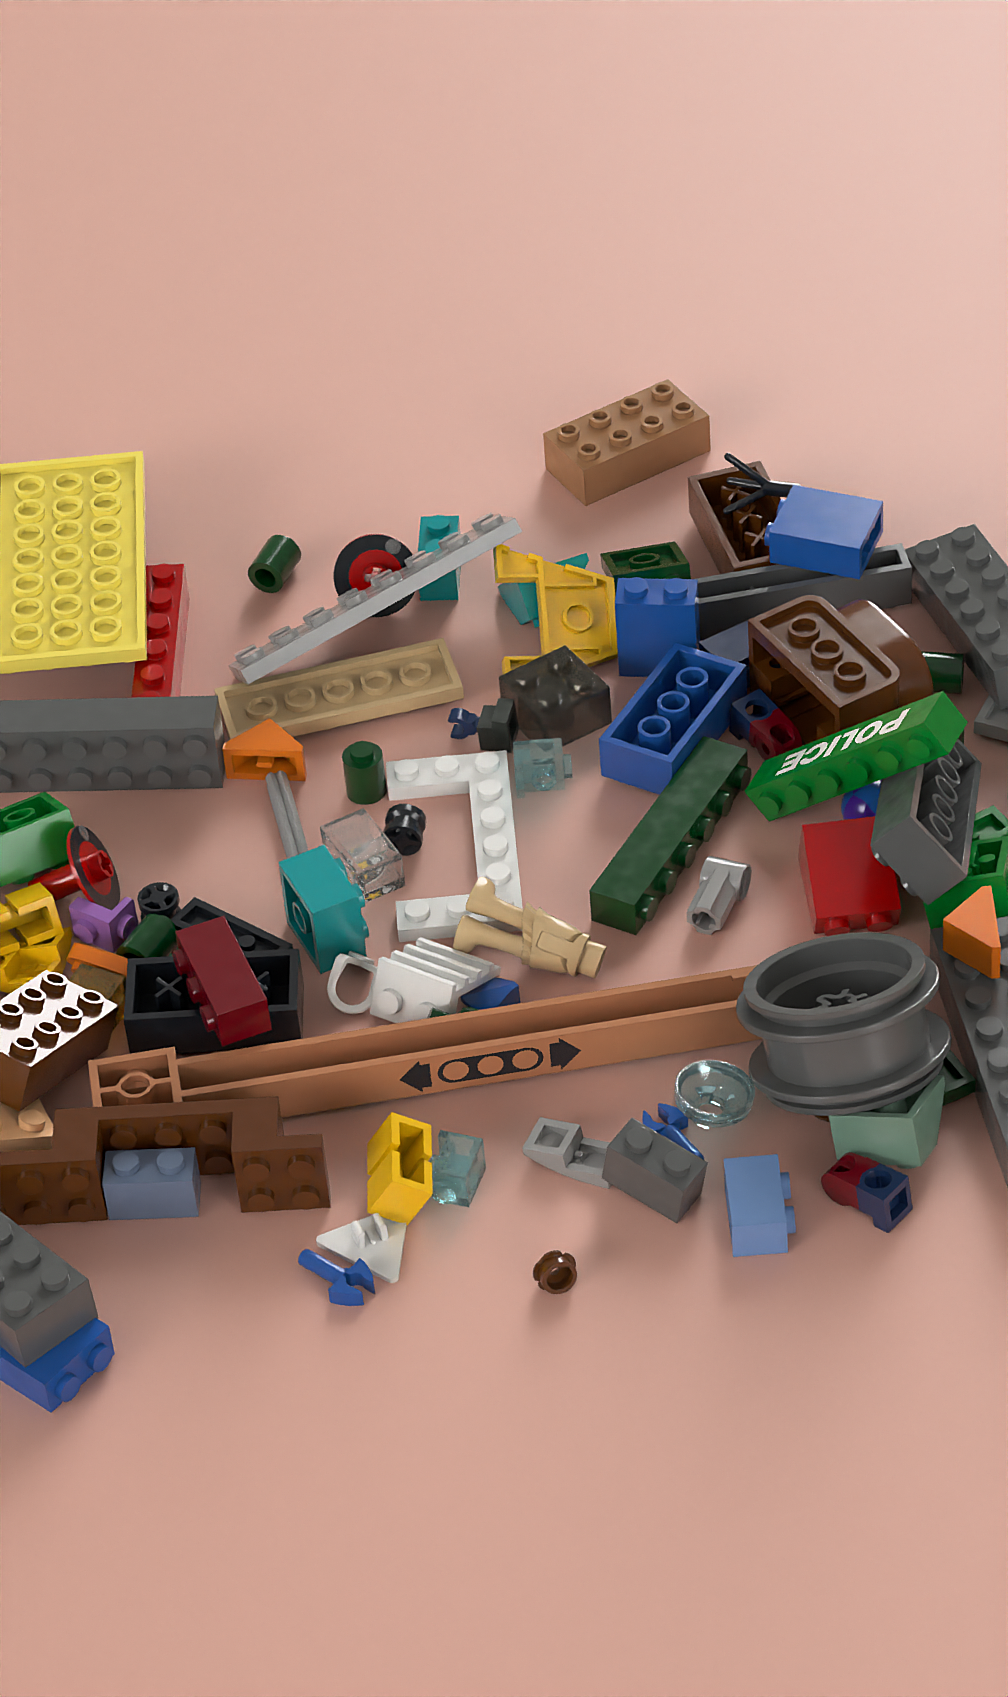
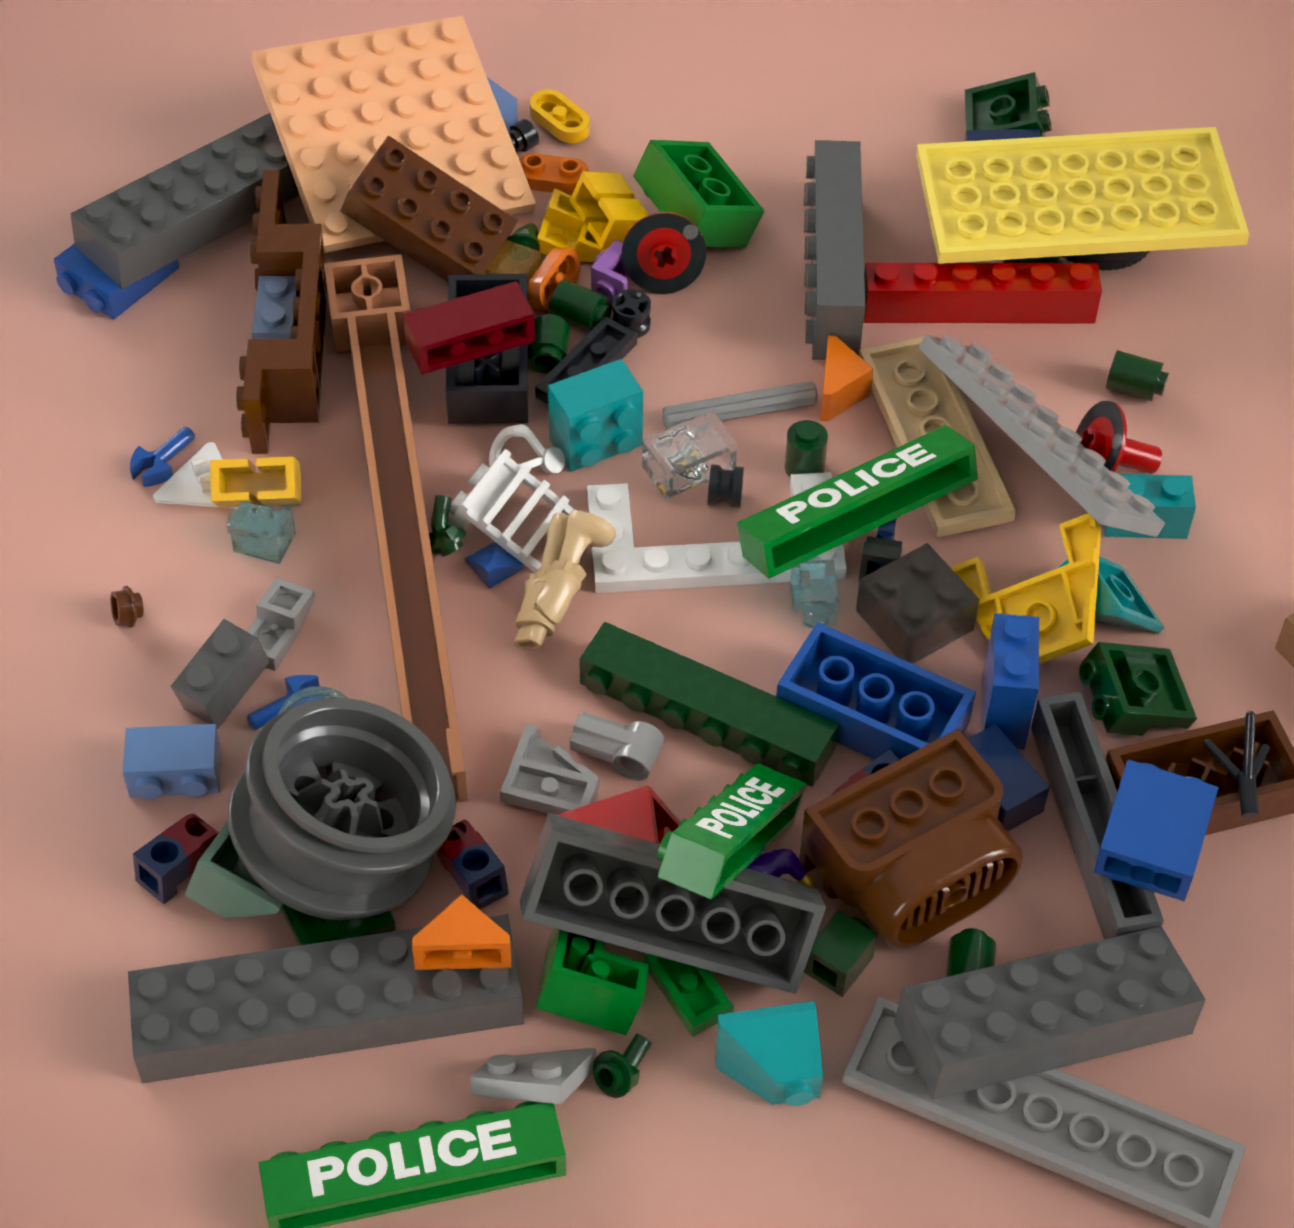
camera: 85 degrees right, 10 degrees up
(449, 720) = (857, 501): none -> green brick
(757, 935) = (546, 777): none -> light grey wing

